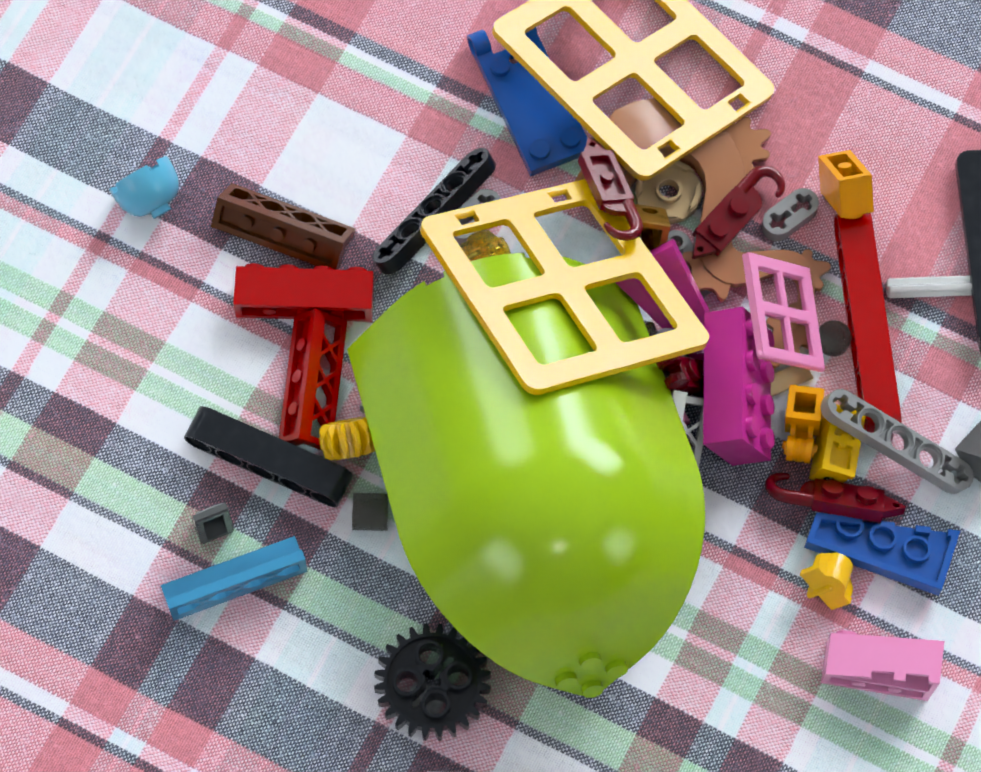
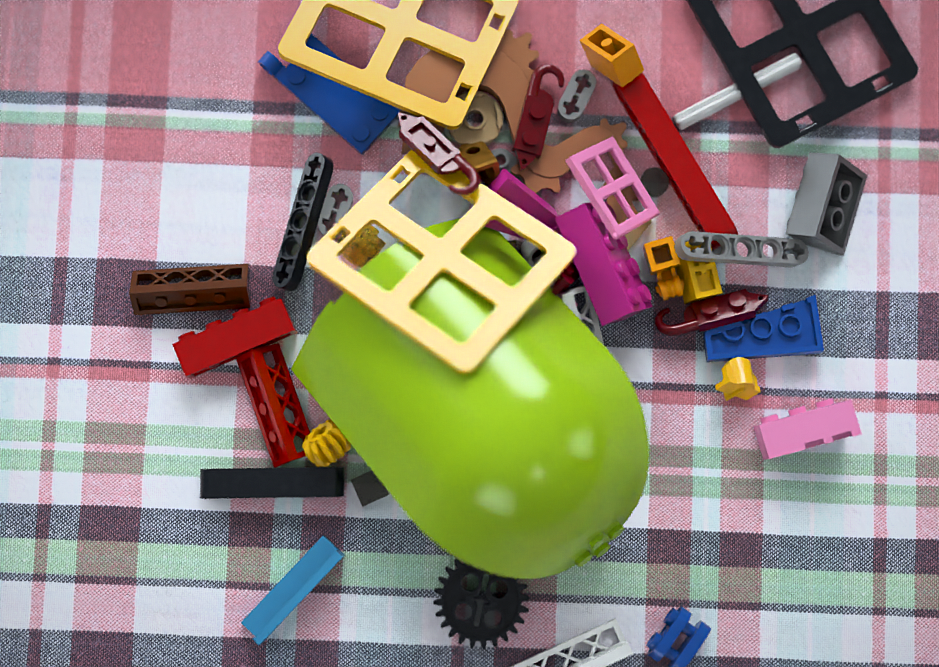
camera: 30 degrees left, 15 degrees up
(148, 189) = (70, 310): medium azure cylinder -> none
(213, 522) = (254, 555): dark grey slope -> none

